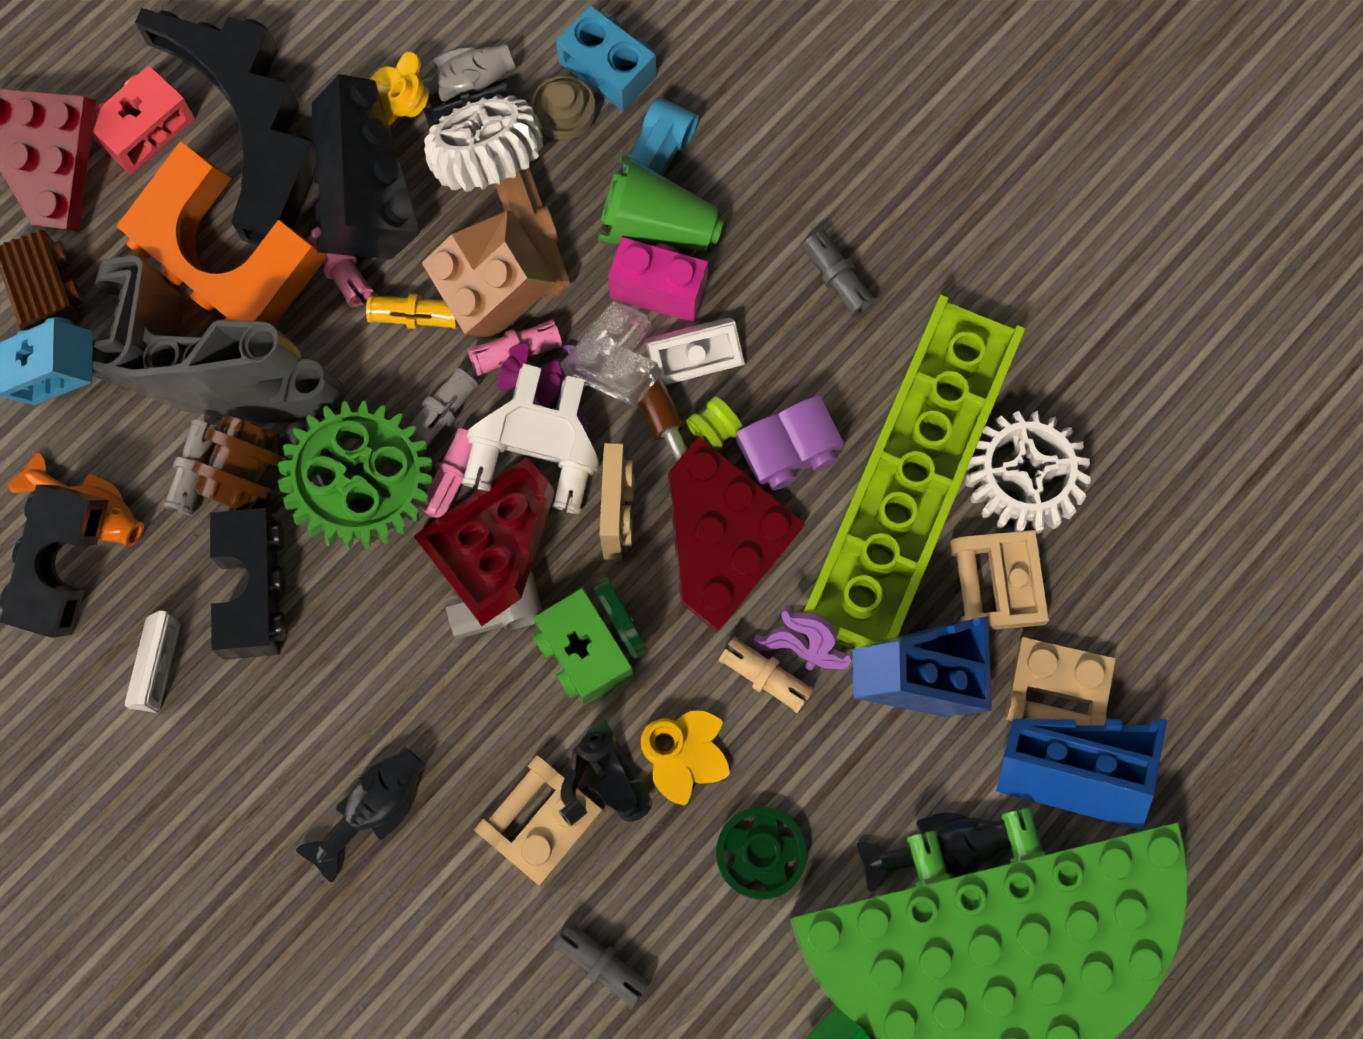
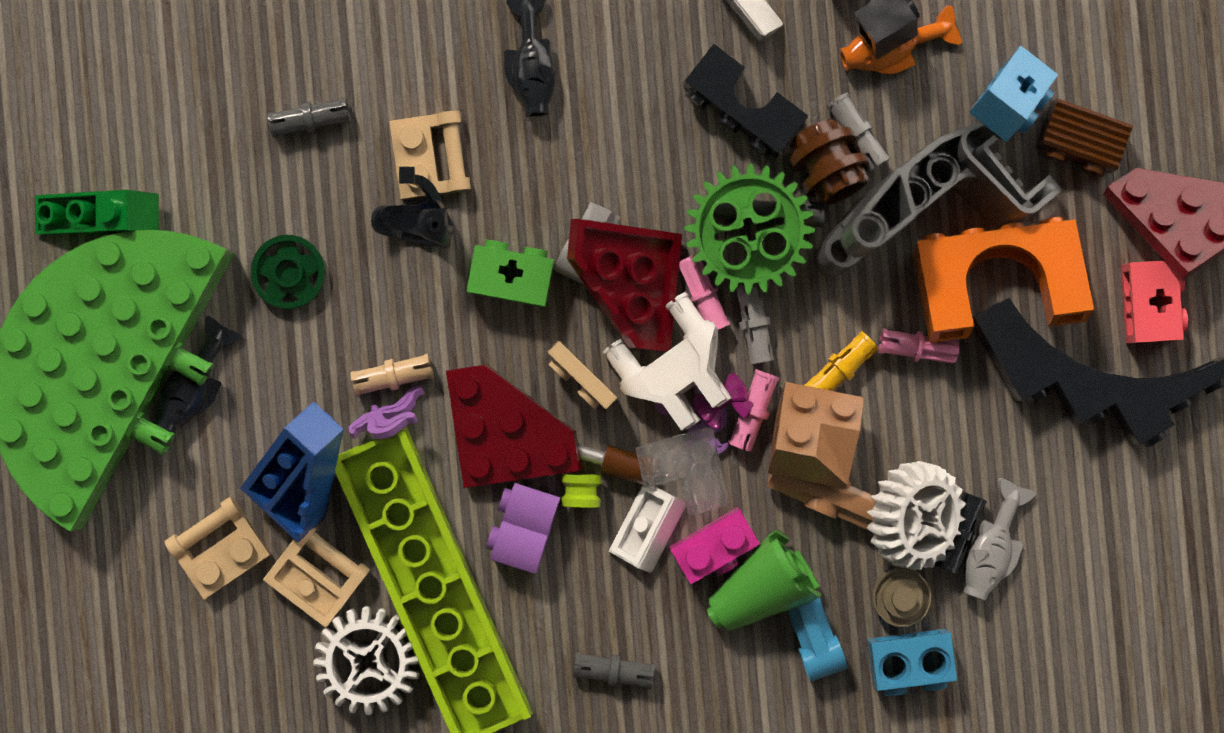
camera: 130 degrees right, 15 degrees up
(359, 174) = (971, 413): black wedge -> none
(401, 88) = (1014, 492): yellow plate -> none
(620, 617) = (505, 314): dark green wheel -> none
(691, 757) = (384, 280): yellow plate -> none
(1085, 768) = (153, 511): blue wedge -> none

